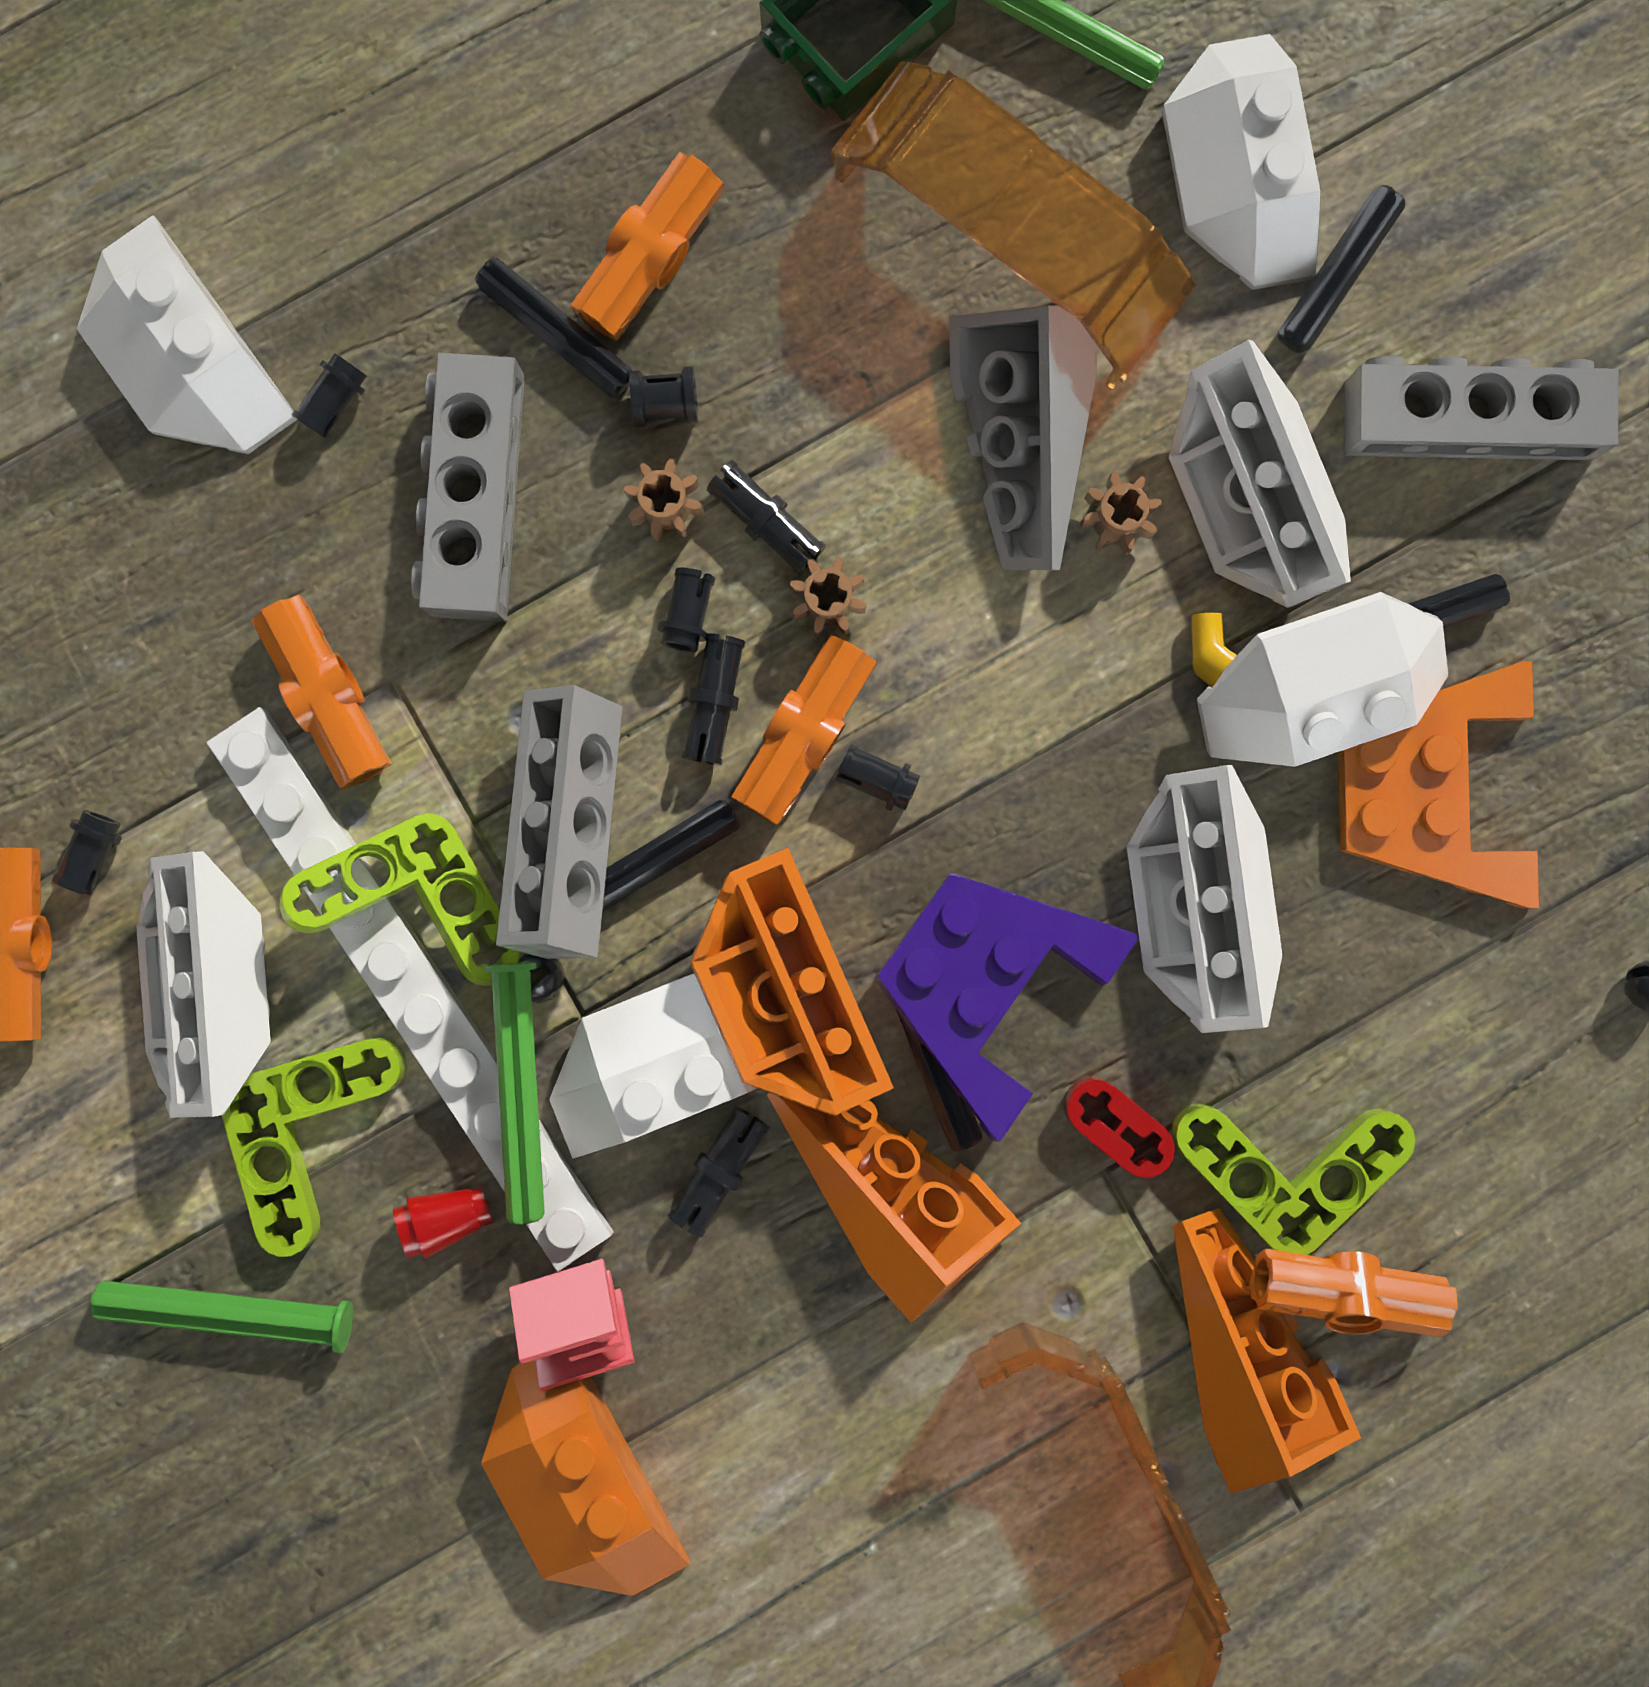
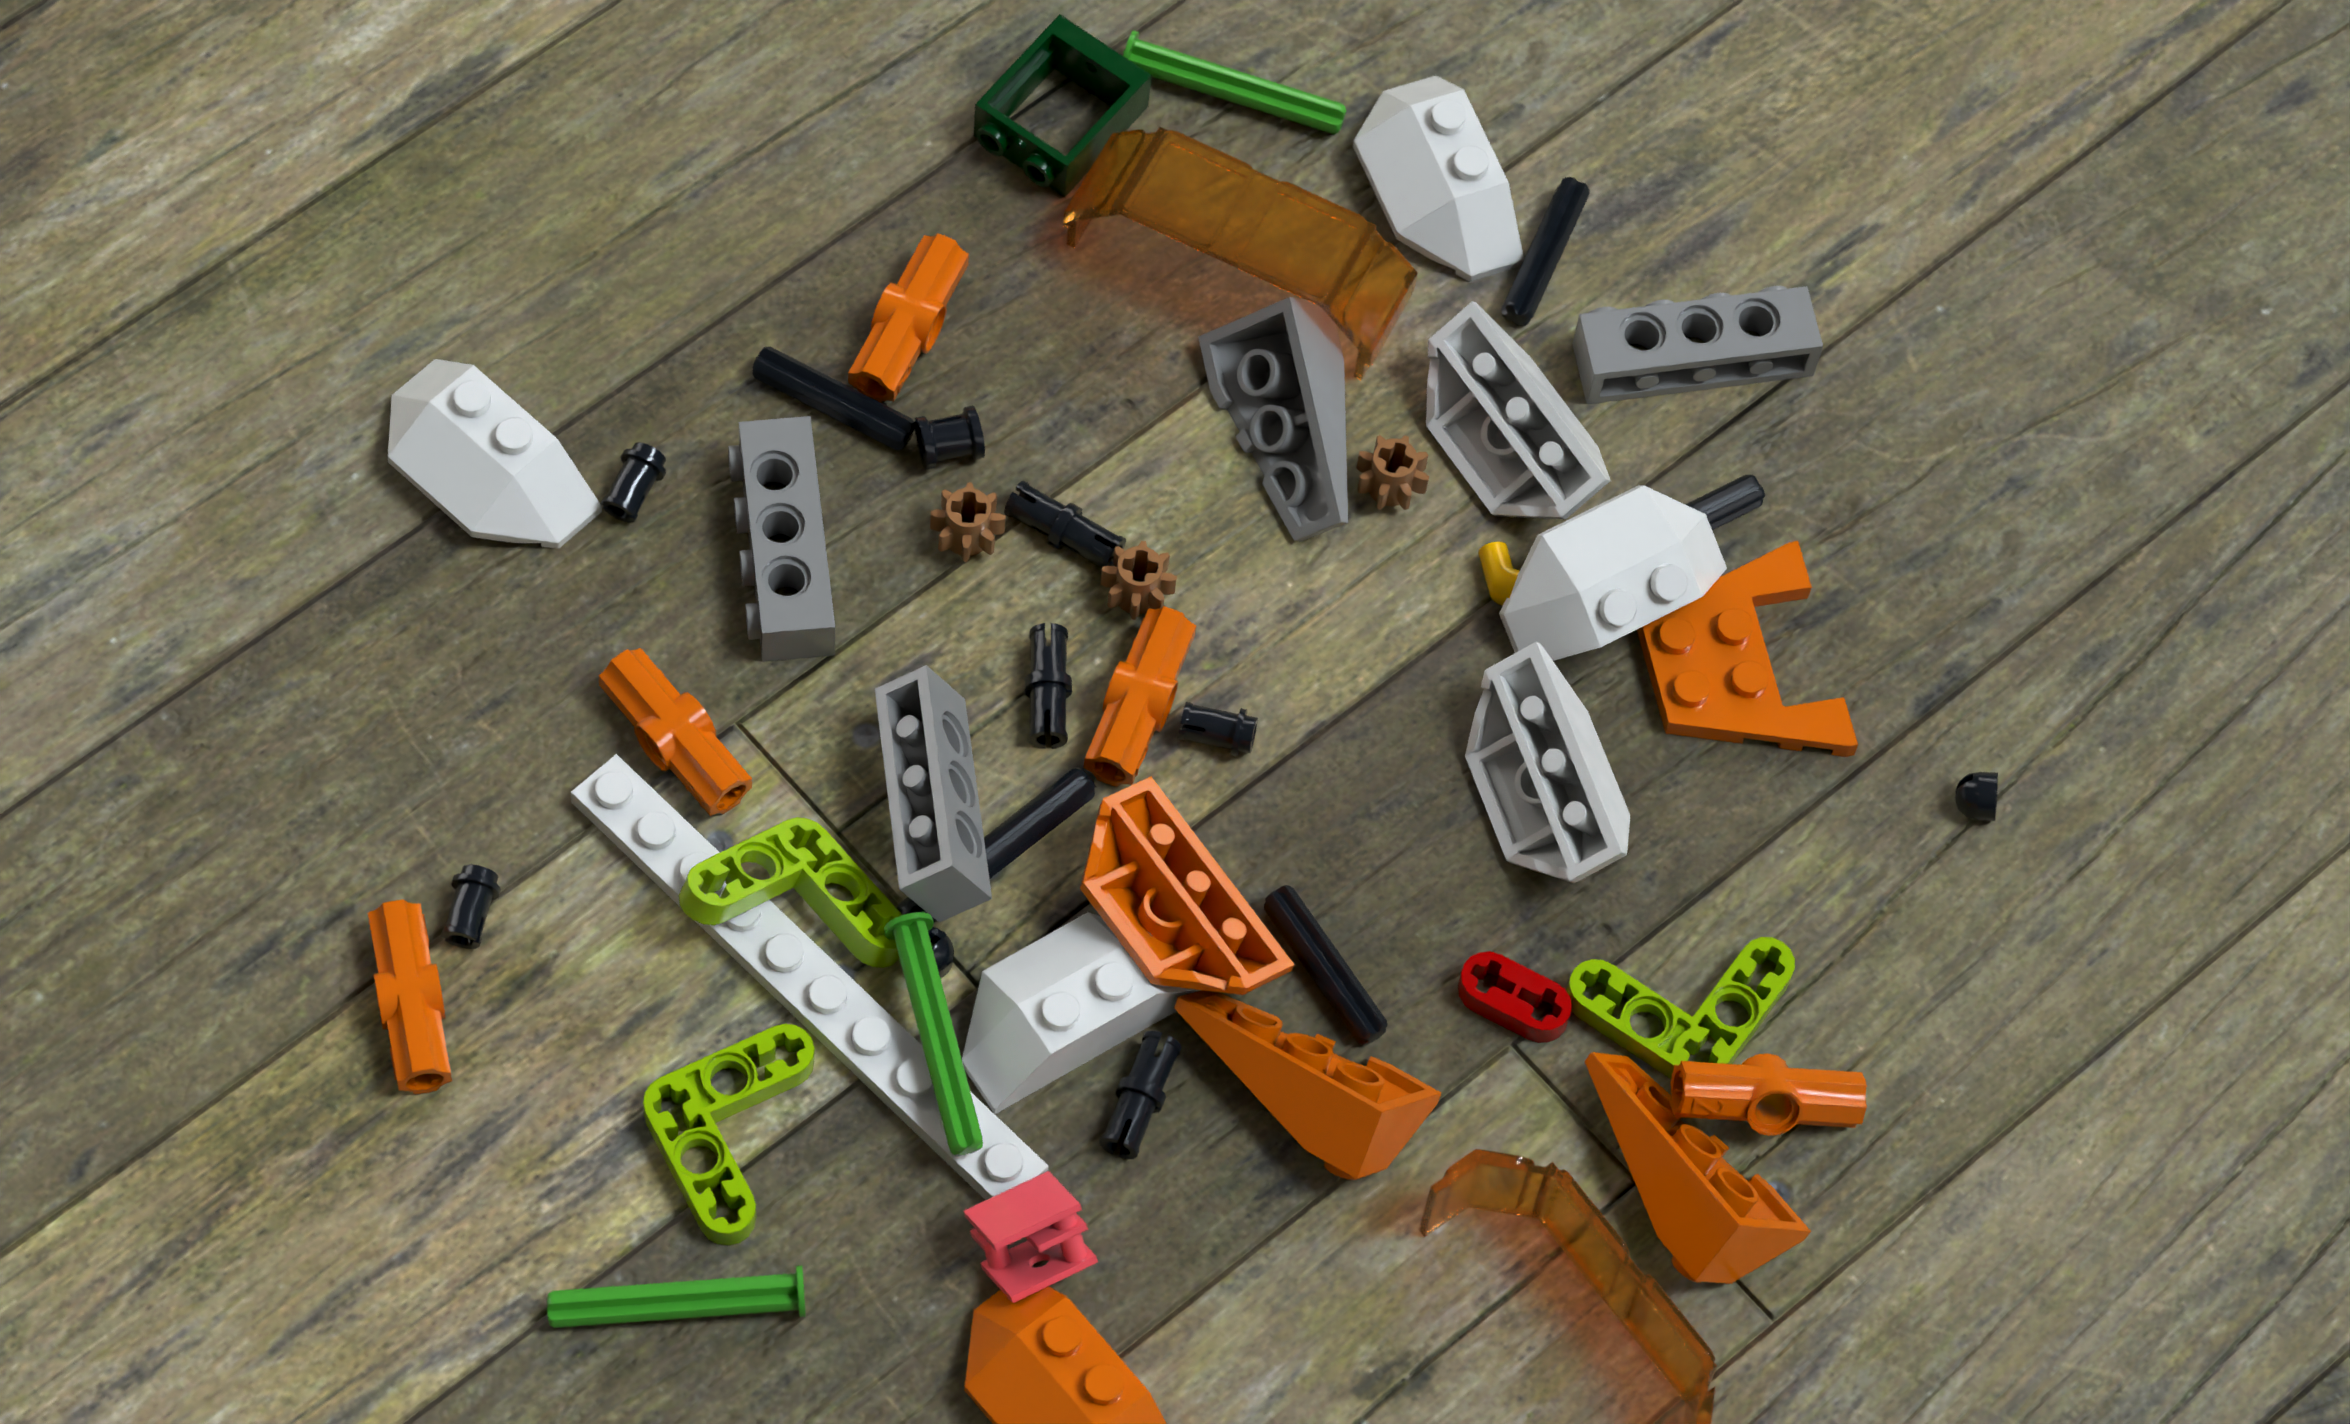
camera: 20 degrees left, 25 degrees down
(200, 984) = (602, 988): white wedge -> none
(440, 1220) = (877, 1178): red cone -> none
(686, 610) = (1007, 624): black pin -> none
(966, 968) = (1340, 868): dark purple wing -> none

